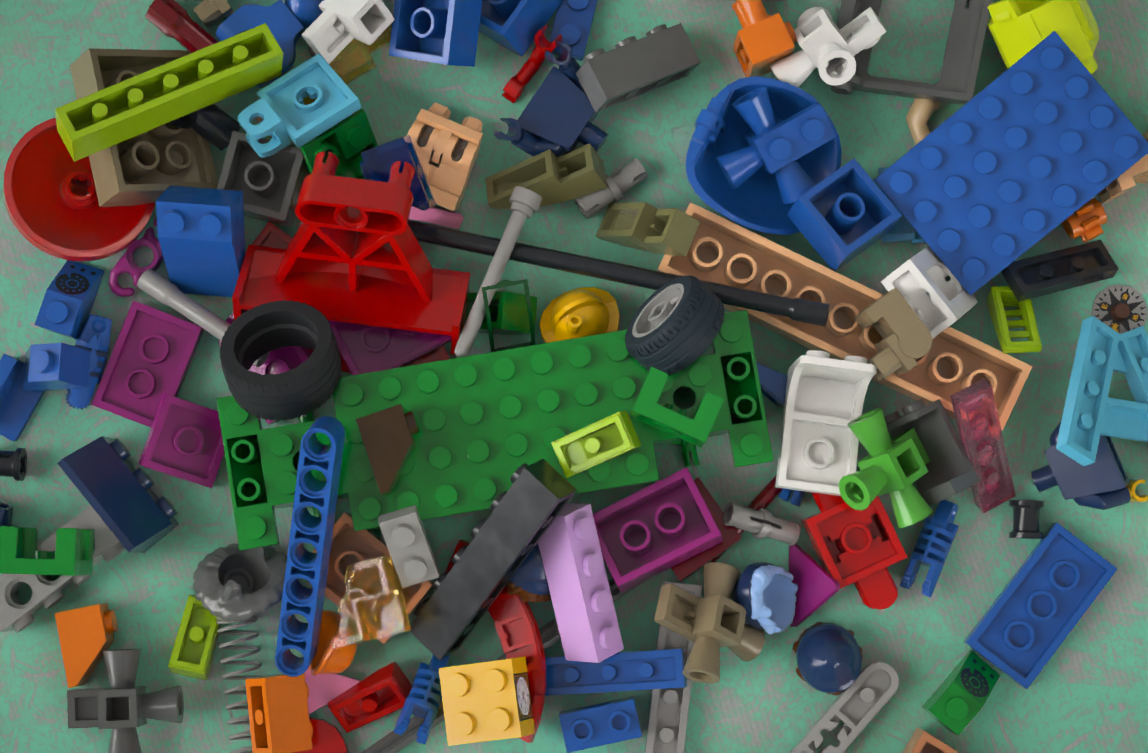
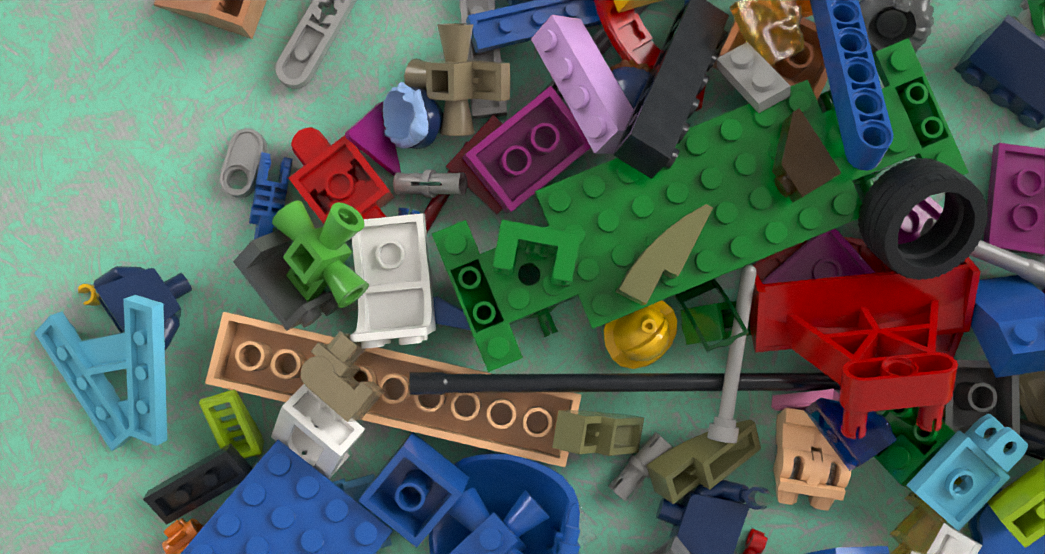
camera: 160 degrees right, 0 degrees up
(184, 441) = (982, 135): magenta plate -> none
(549, 380) = (663, 256): none -> olive slope
(596, 443) = (602, 208): lime slope -> none
(675, 325) = (554, 337): black wheel -> none
(828, 657) = (343, 78): dark blue hair -> none
(948, 600) = (244, 156): none -> light grey piece
(962, 693) = (216, 73): green slope -> none
(983, 444) = (237, 300): clear pink plate -> none
(1026, 519) = (187, 243): black bush -> none
(1040, 605) = (160, 169): blue plate -> none
(1120, 308) = (137, 462): piece -> none

